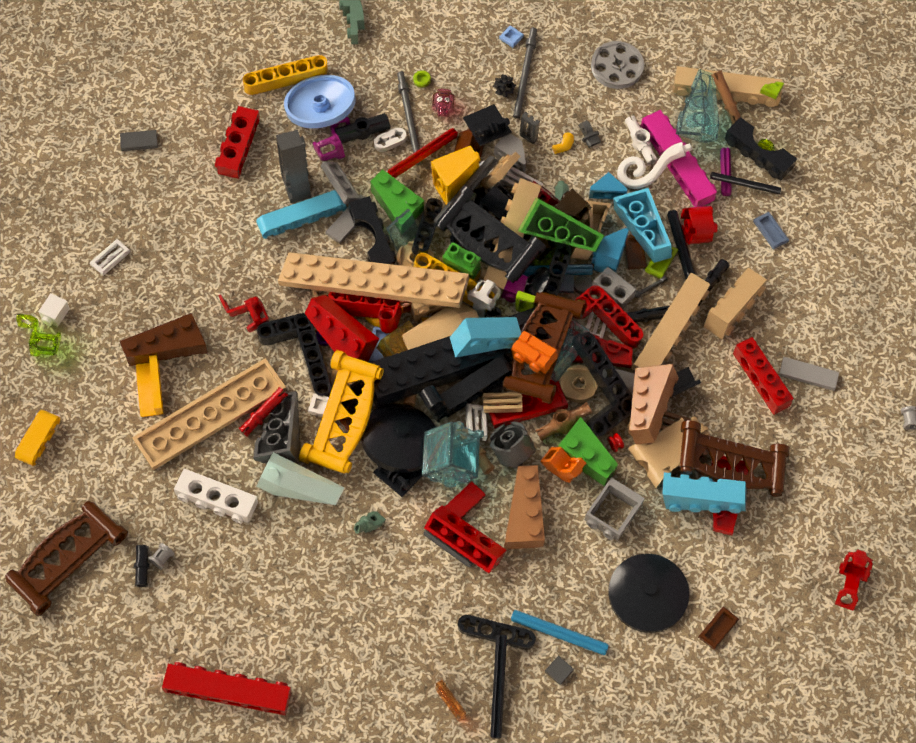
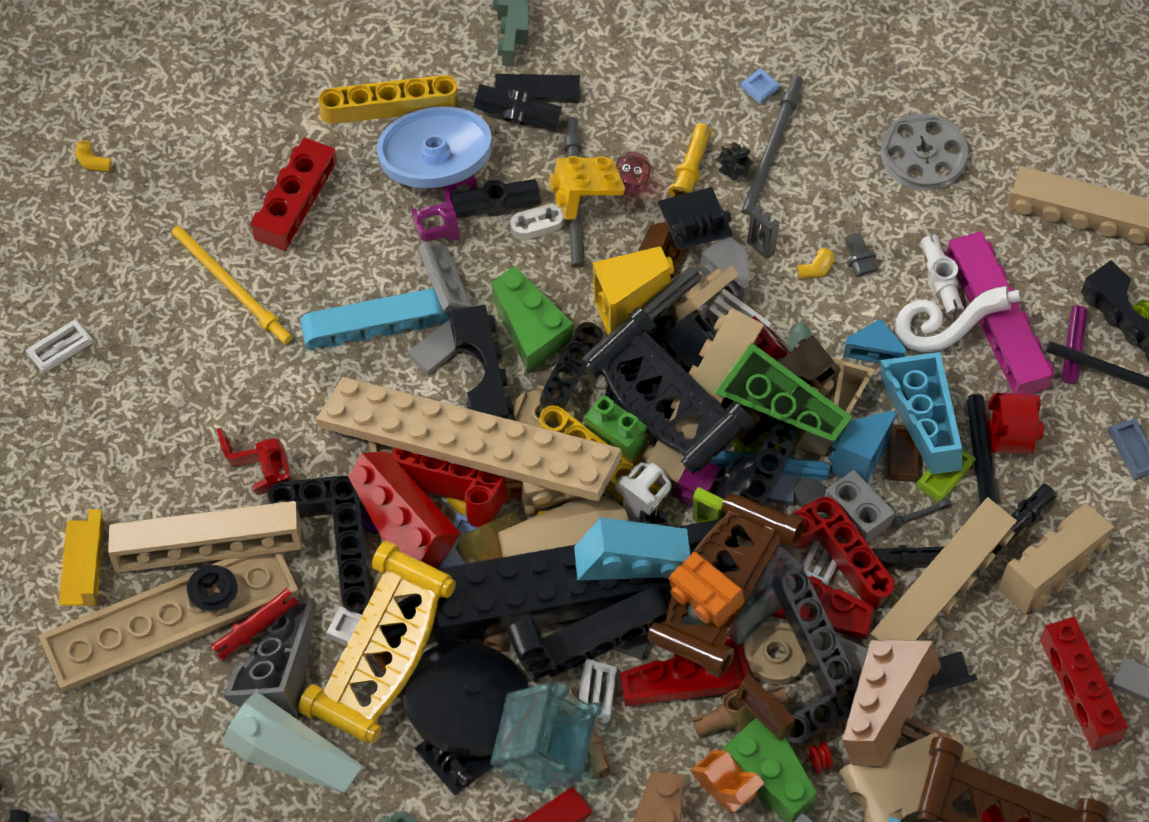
camera: 10 degrees right, 5 degrees down
(105, 137) = (88, 158): none -> yellow arm
(138, 140) = (139, 171): dark grey tile -> none
(167, 341) = (122, 490): reddish brown wedge -> none
(190, 481) = (117, 719): white brick -> none
(223, 362) = (205, 536): none -> tan brick
(228, 388) = (207, 577): none -> black gear
(235, 223) = (267, 319): none -> yellow bar
(293, 165) = (373, 240): dark grey wedge -> none
(366, 69) = (518, 107): none -> black piece
(375, 55) = (542, 86): none -> black tile
(402, 229) = (530, 365): clear light blue piece -> none
(415, 108) = (580, 177): none -> yellow bracket
(421, 79) = (604, 133): lime tile -> none
(422, 153) = (585, 249): red axle -> none
(477, 97) = (688, 172): none -> yellow pin
(502, 399) = (645, 661): tan tile -> none
(512, 444) = (647, 736): dark grey brick -> none
(580, 418) = (765, 708): none -> reddish brown tile
(700, 115) = (1045, 246): clear light blue wedge -> none
(729, 103) = (1092, 221): medium nougat pin -> none

